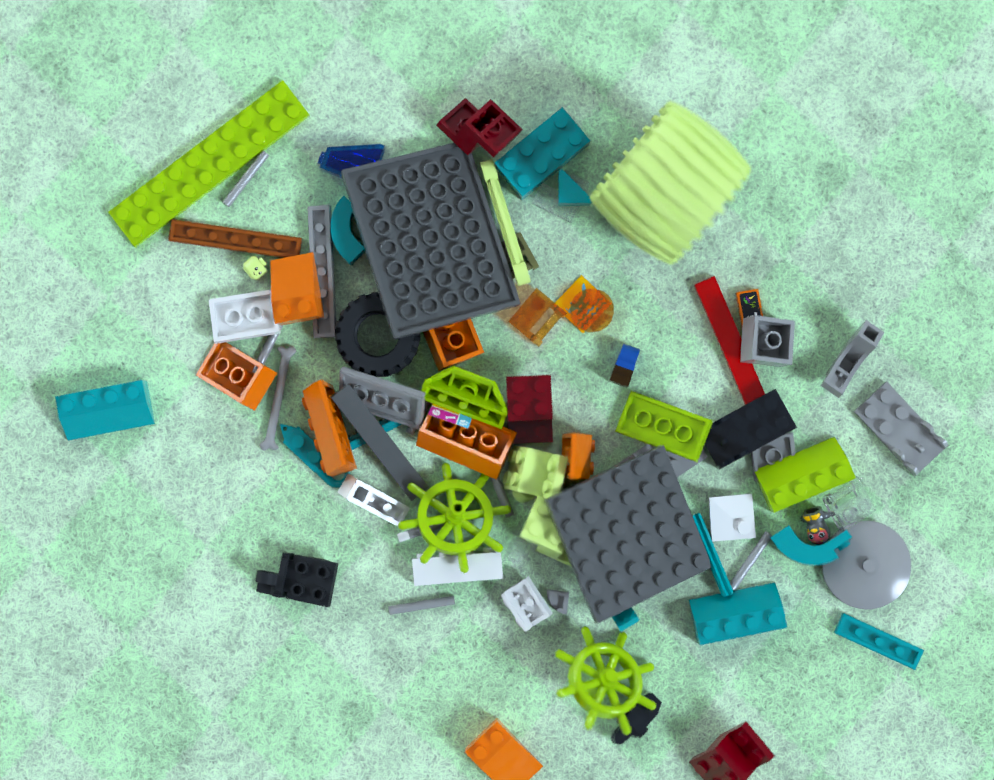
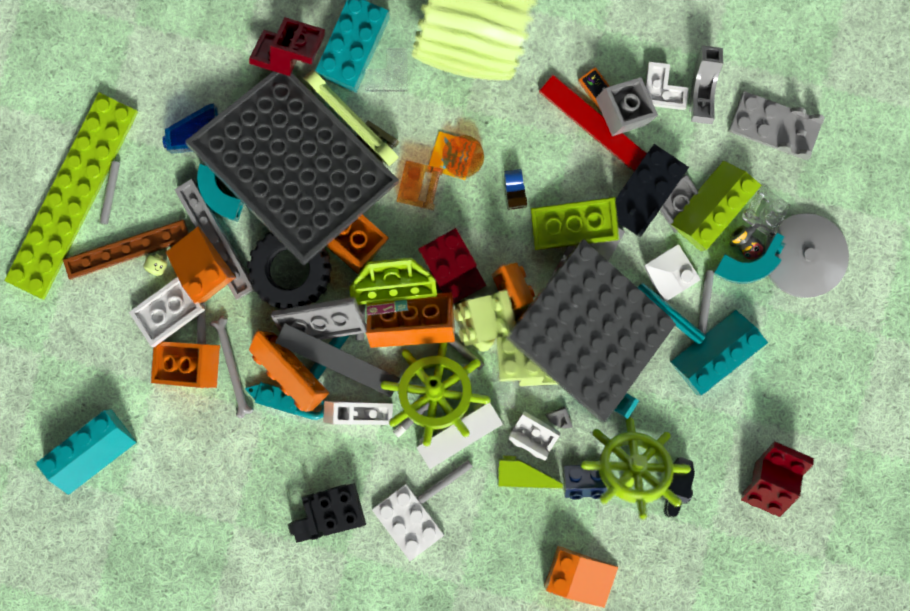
camera: 30 degrees left, 0 degrees up
(368, 625) = (408, 522): none -> white plate
(495, 633) = (517, 473): none -> lime slope
(549, 670) = (583, 483): none -> dark blue bracket
(570, 192) = (394, 63): teal slope -> none
(806, 341) = (659, 90): none -> white plate
(878, 641) = (849, 315): teal tile -> none

